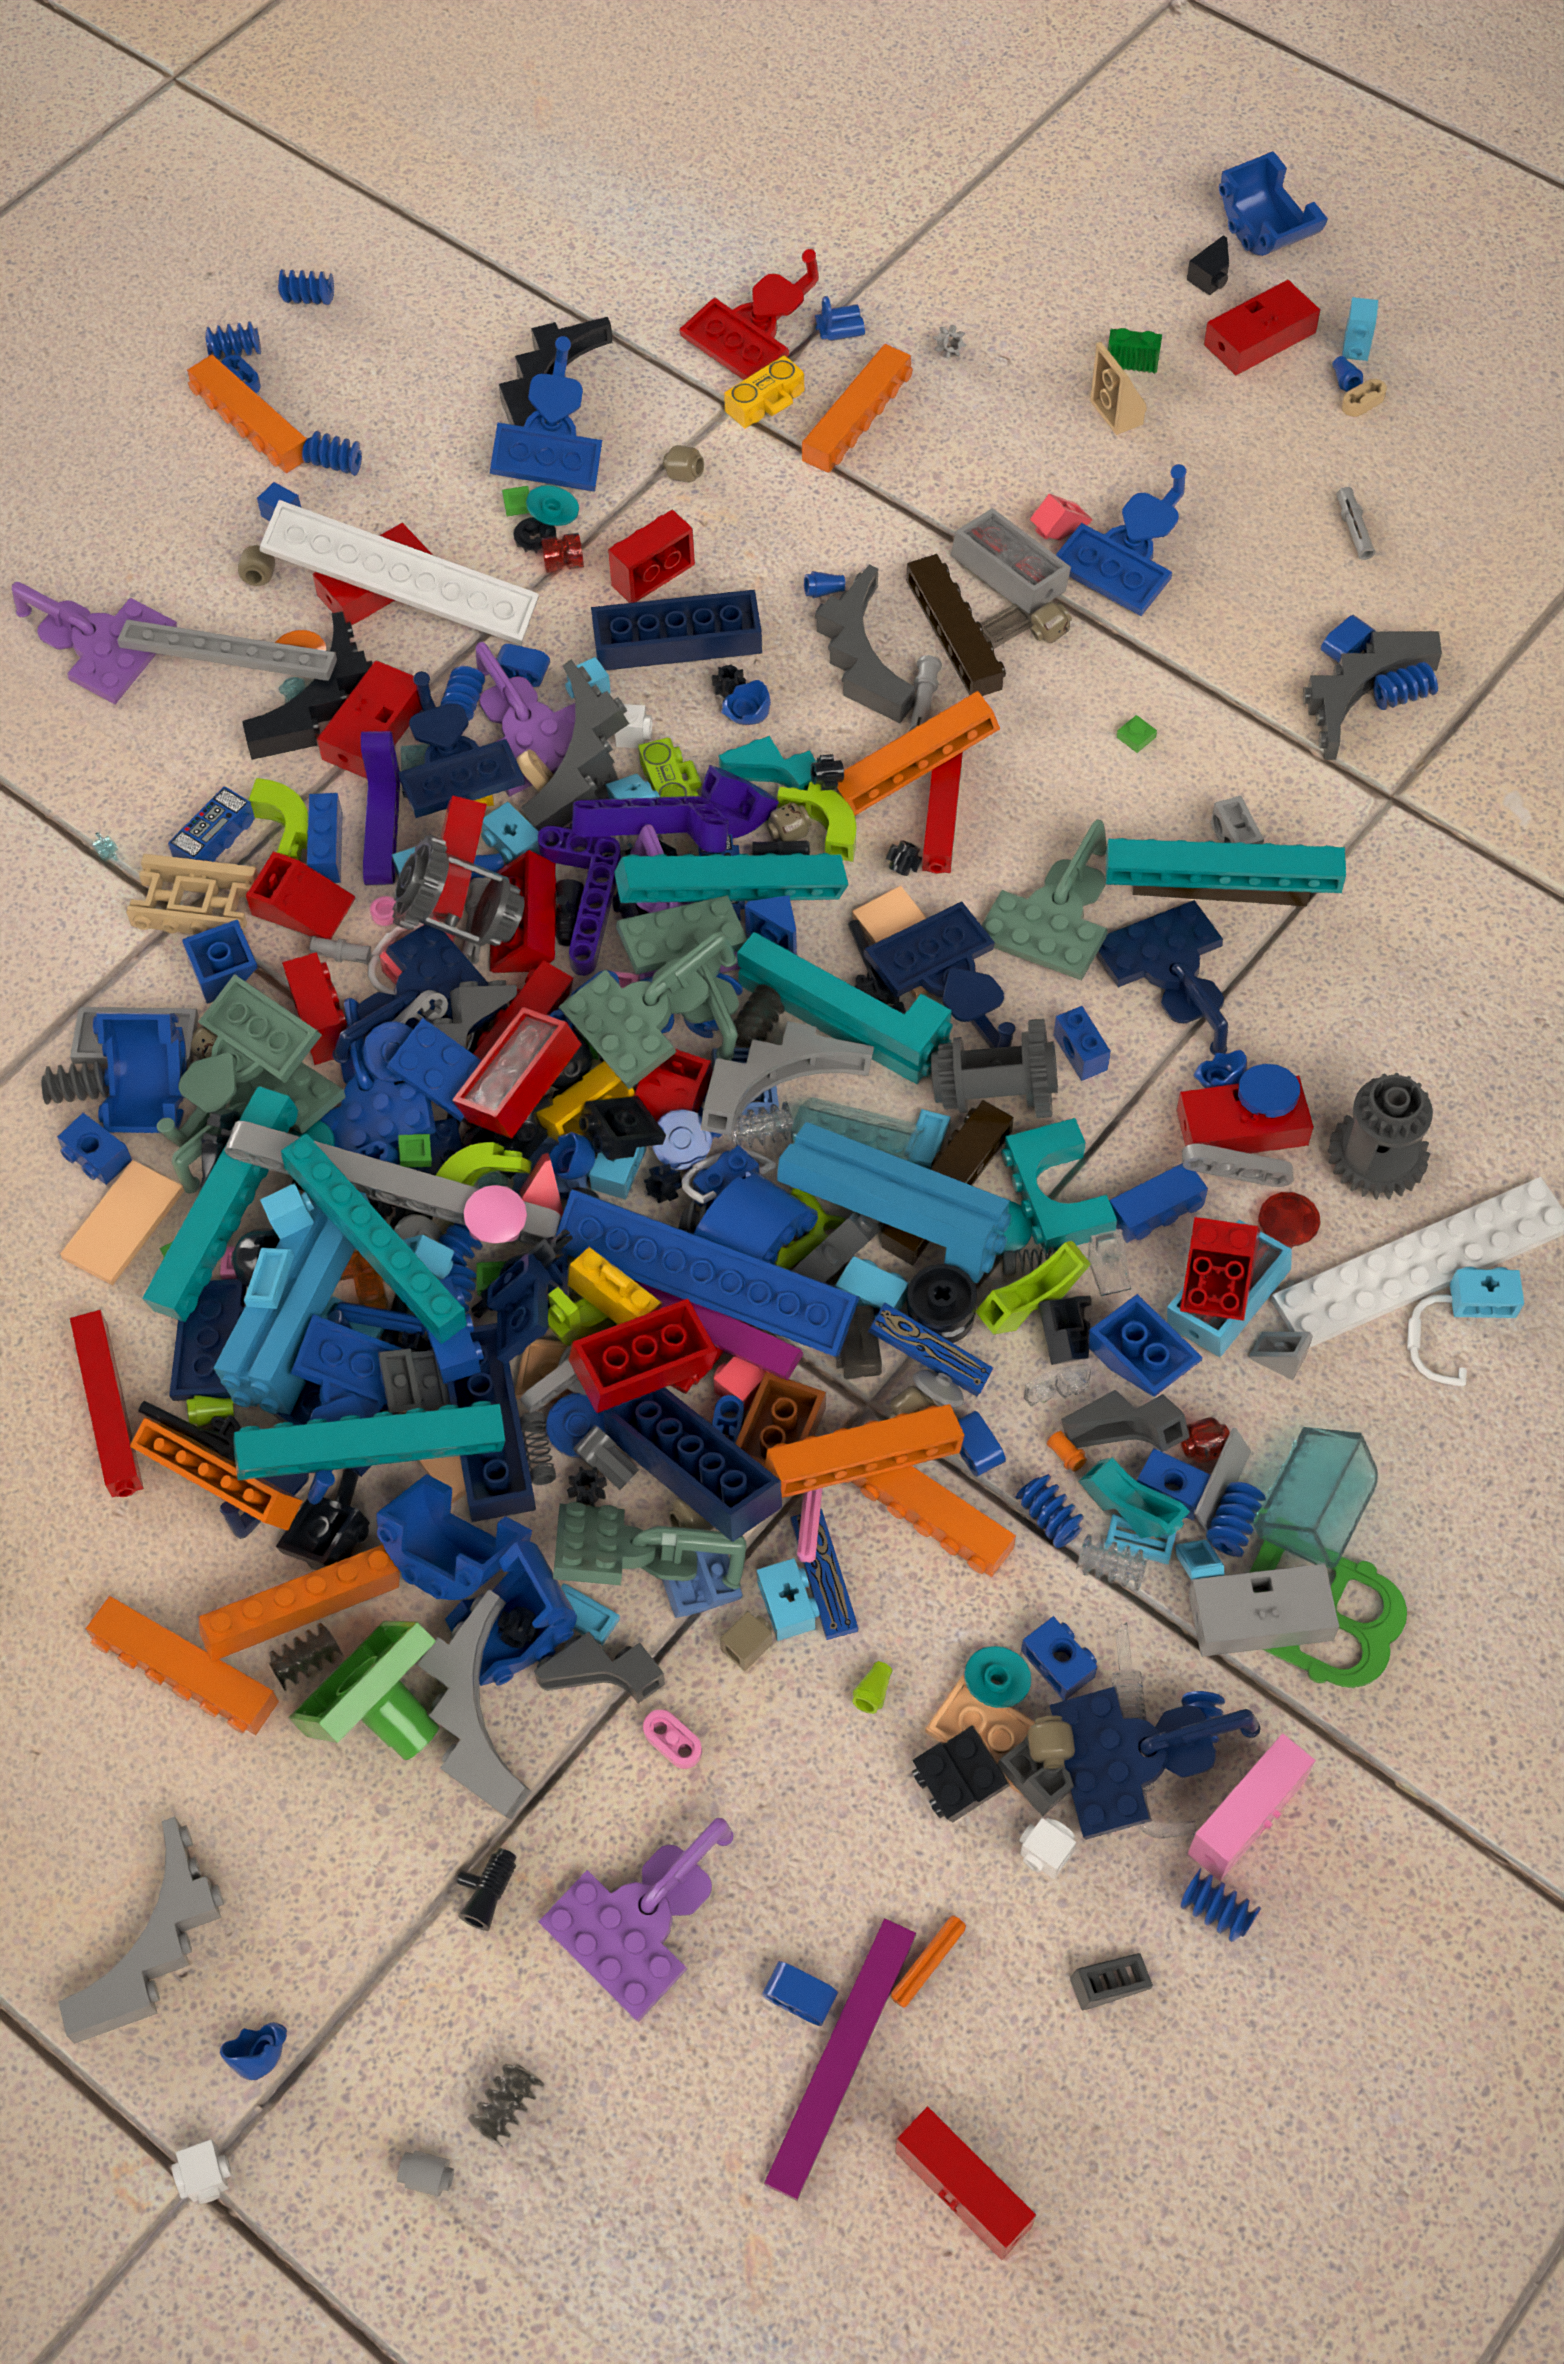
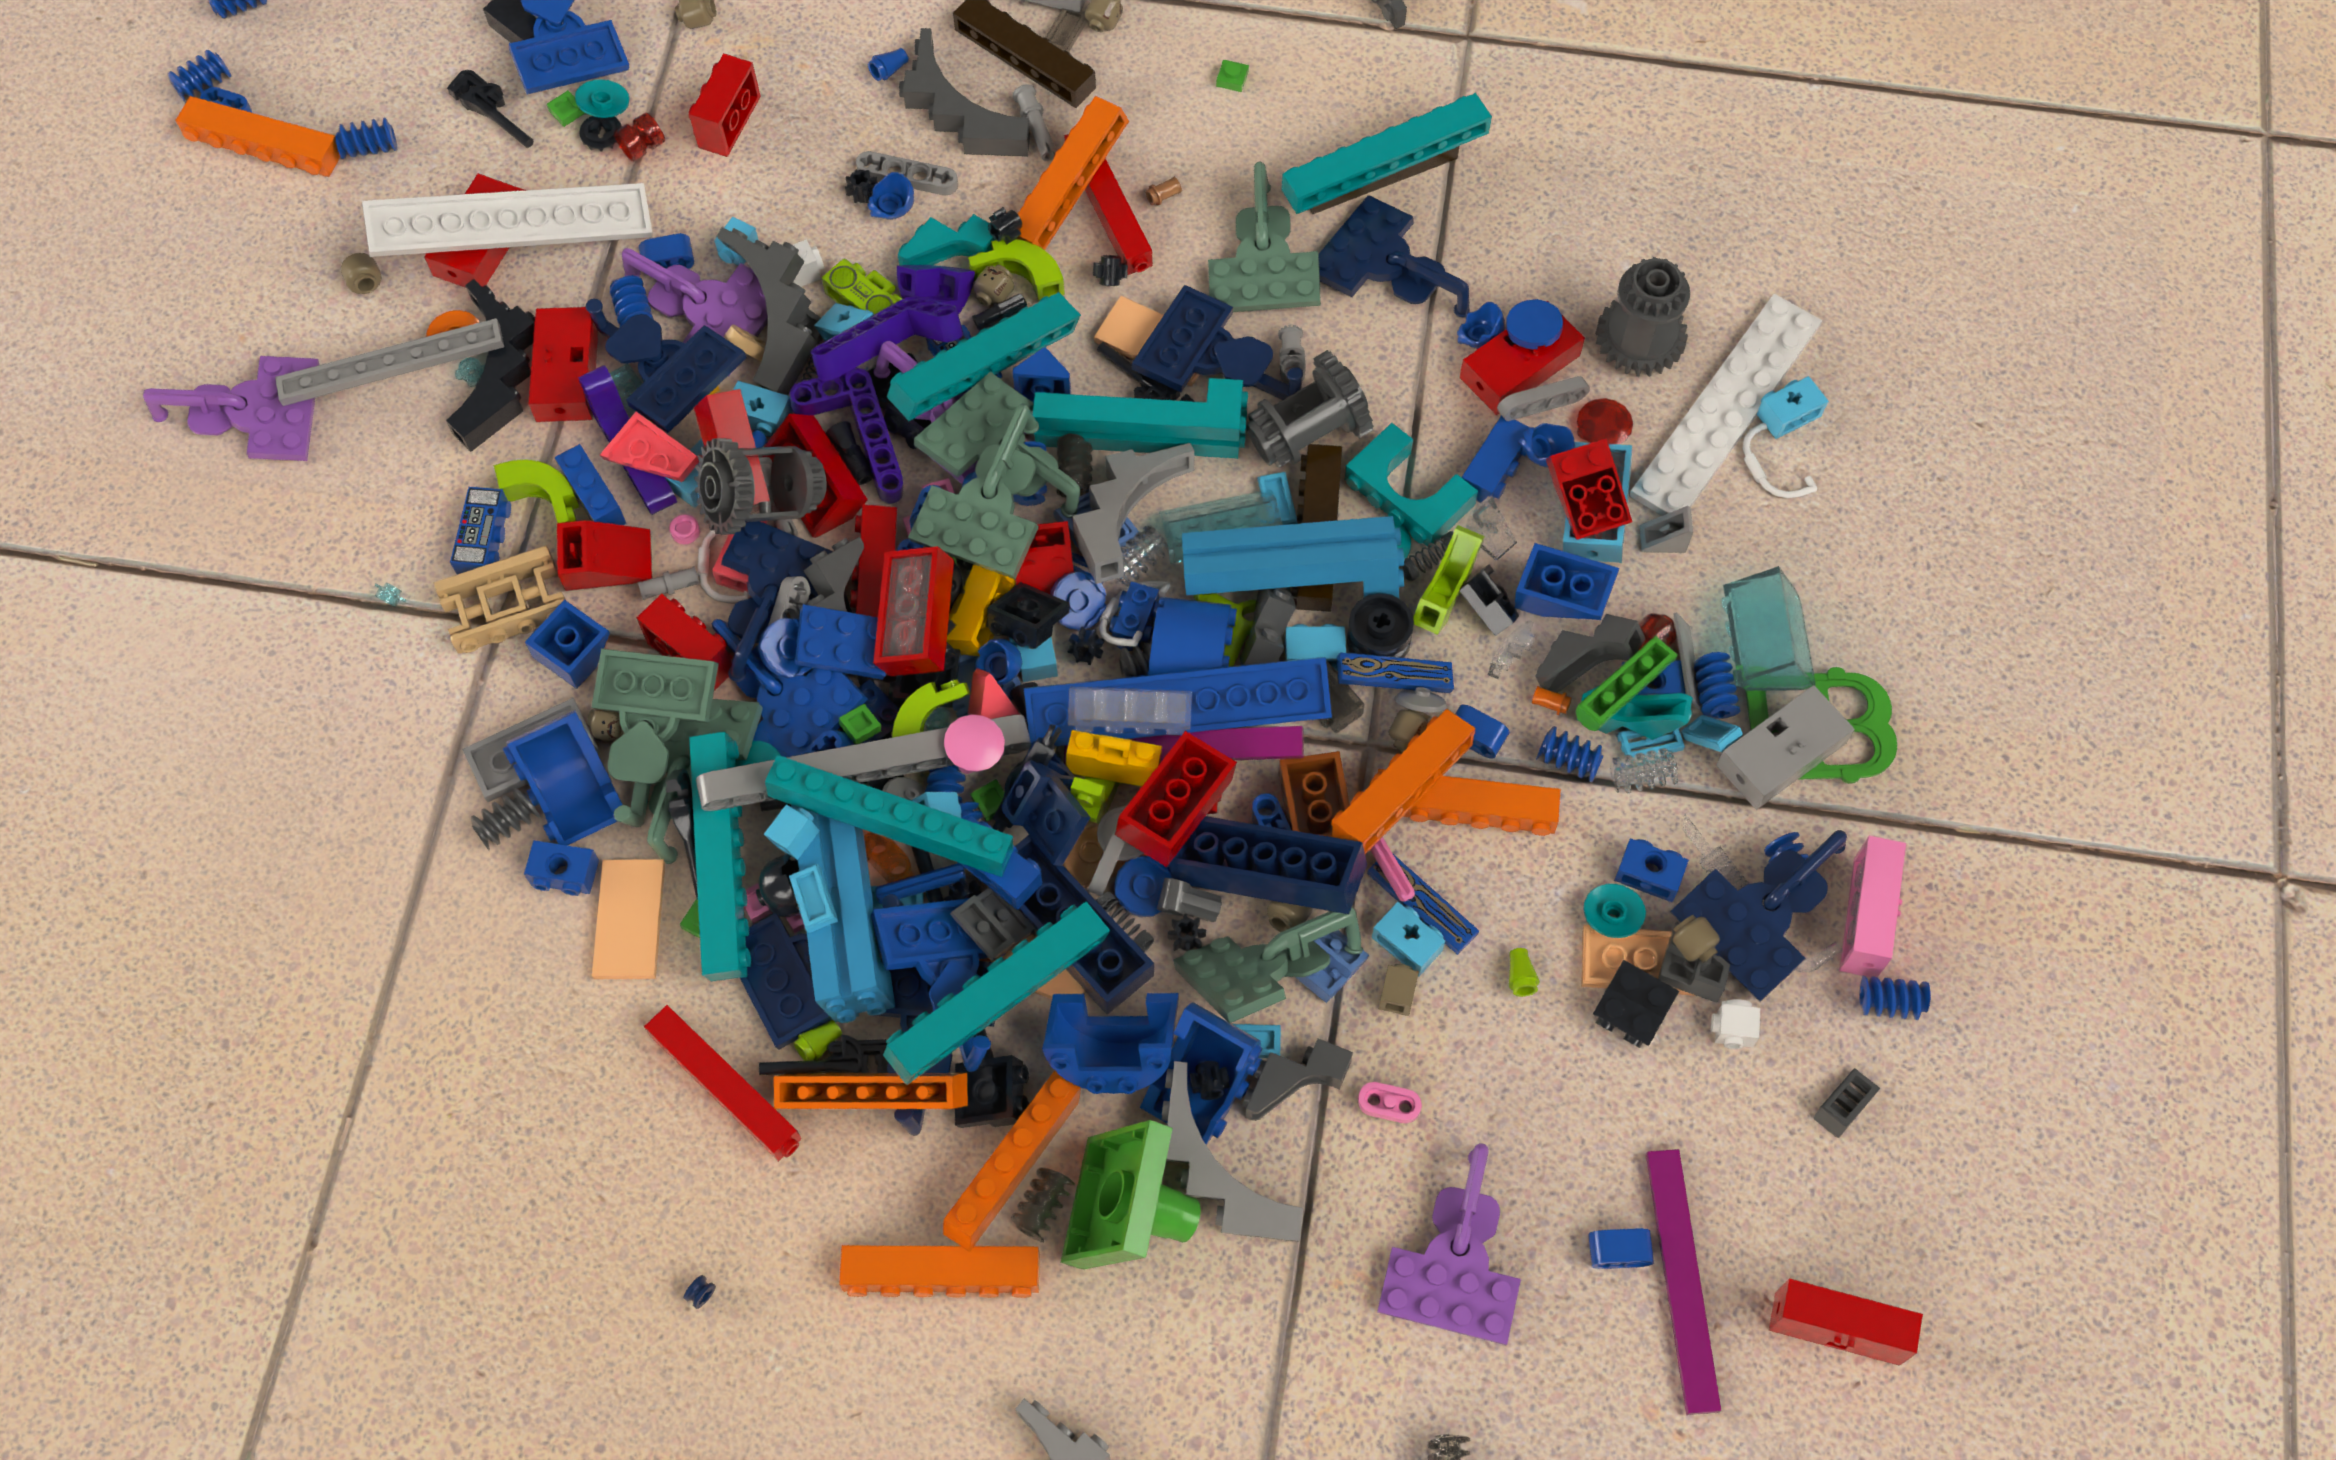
camera: 30 degrees left, 5 degrees up
(269, 498) = (345, 208): blue brick -> none
(389, 823) = (650, 450): none -> coral wing
(452, 463) = (483, 99): none -> black piece
(489, 1889) = (1321, 1307): black piece -> none
(653, 1254) = (1129, 709): none -> clear brick
(677, 630) = (788, 160): dark blue brick -> none
(739, 1380) = (1255, 778): coral slope -> none
(782, 686) = (909, 168): none -> light grey beam
(928, 1961) = (1701, 1166): orange axle -> none
(1001, 809) = (1158, 193): none -> medium nougat pin
(1028, 1007) = (1291, 352): none -> light grey connector
(1081, 1043) = (1358, 355): blue brick -> none
(1136, 1467) = (1625, 684): none -> bright green brick
(1211, 1204) = (1546, 441): none -> blue hair
(1234, 822) = (1365, 115): light grey brick -> none

